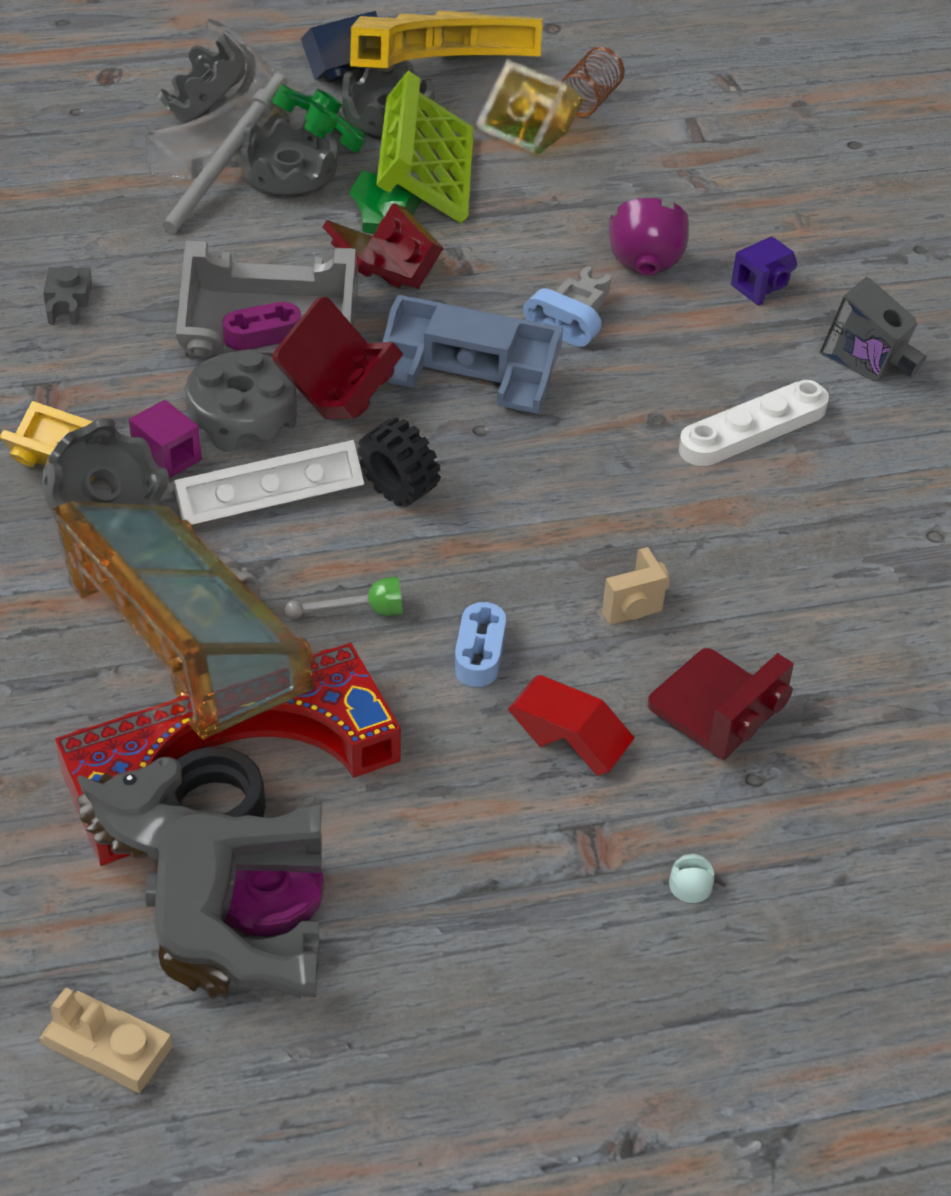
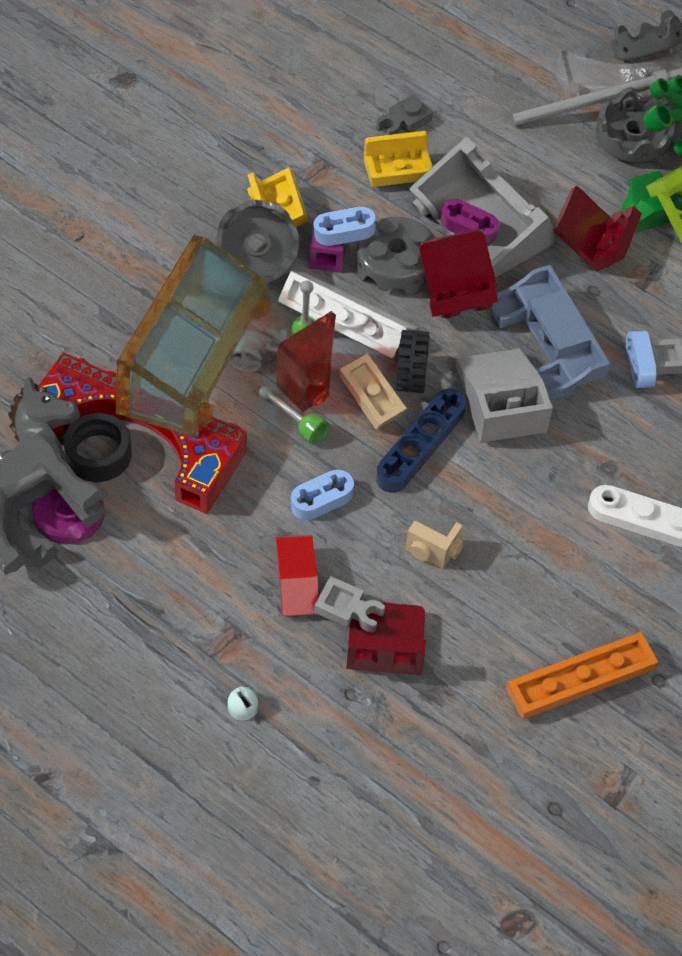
camera: 50 degrees right, 10 degrees up
(120, 325) = (396, 158): none -> yellow bracket
(169, 396) = (344, 226): none -> light blue beam
(246, 525) = (302, 321): none -> light grey hinge
(320, 538) = (307, 362): none -> clear red slope
(396, 519) = (372, 391): none -> tan plate
(495, 524) = (419, 438): none -> dark blue beam
(507, 426) = (504, 395): none -> light grey slope
(653, 705) = (344, 602): none -> light grey plate
(893, 582) = (581, 675): none -> orange plate

